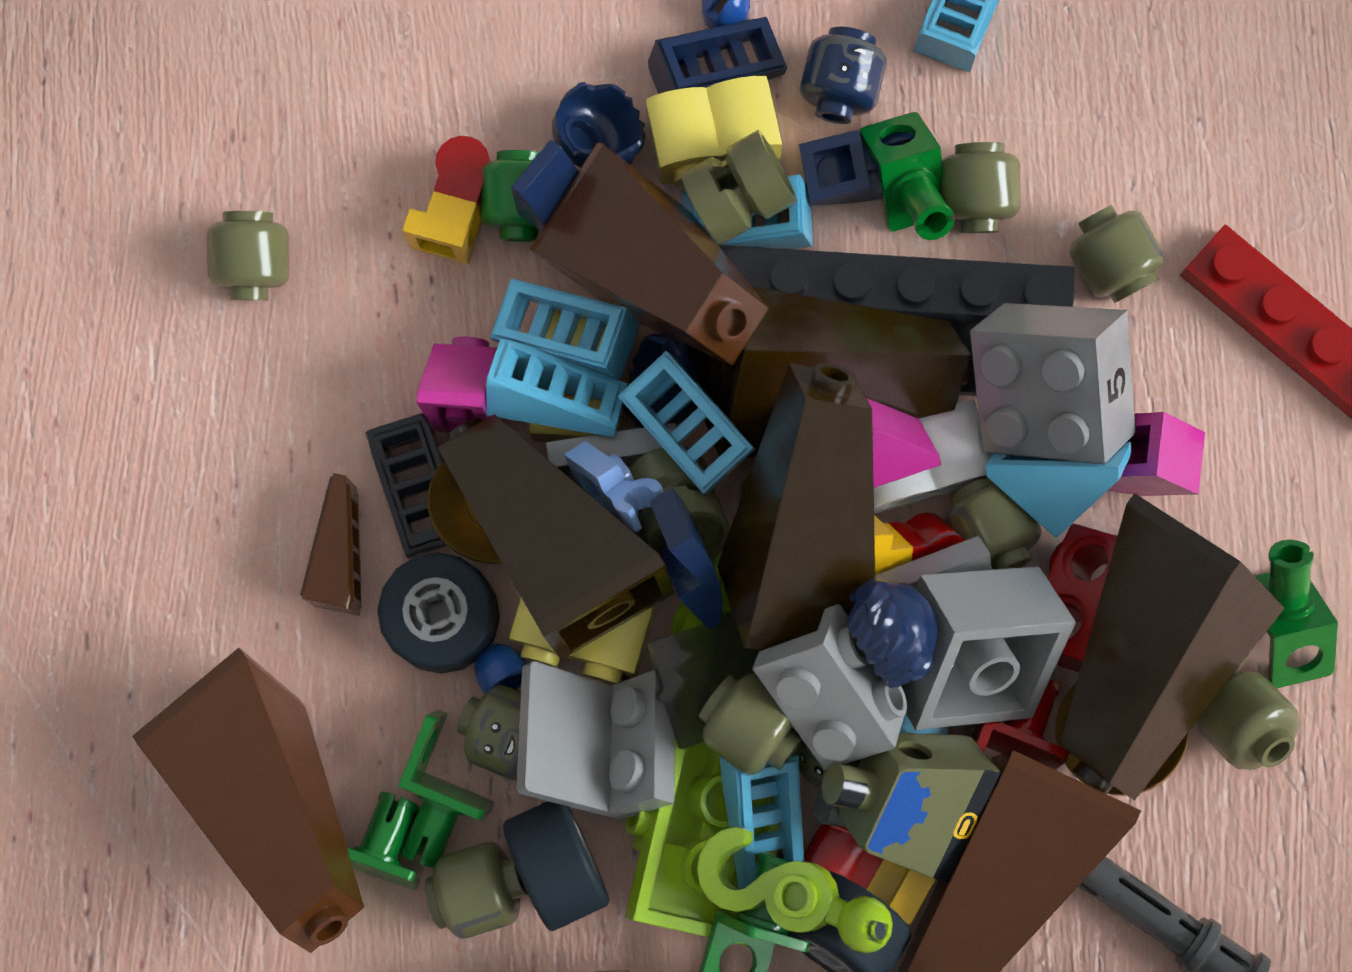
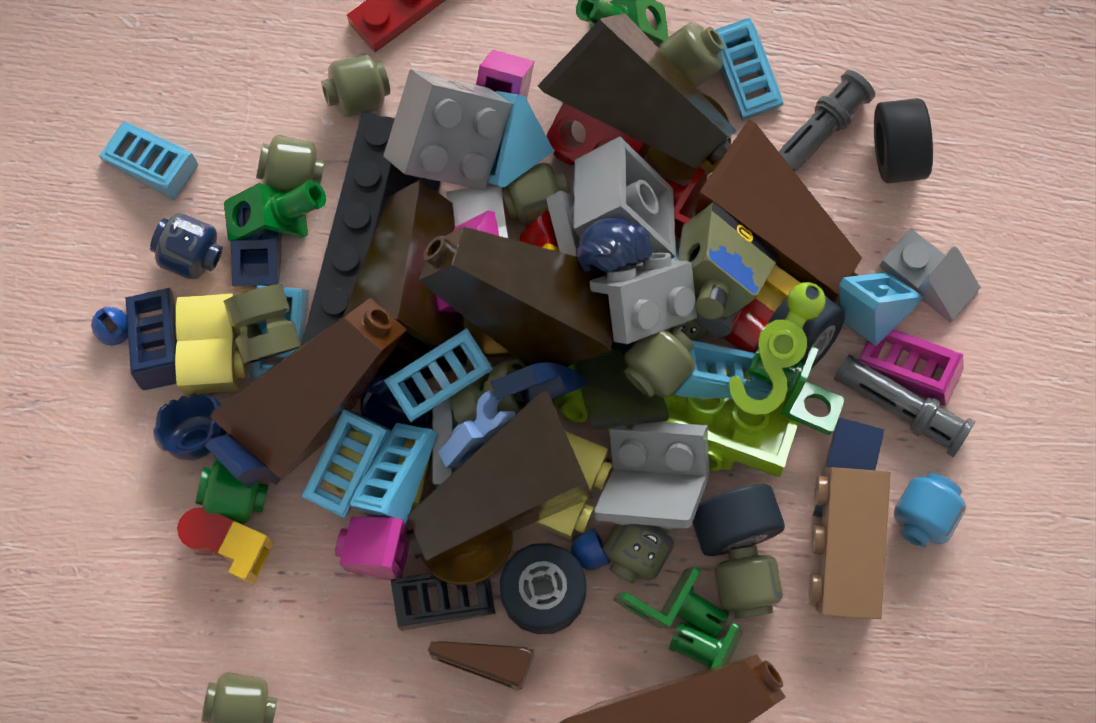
camera: 85 degrees left, 5 degrees down
(1297, 779) = (749, 44): none -> medium azure slope

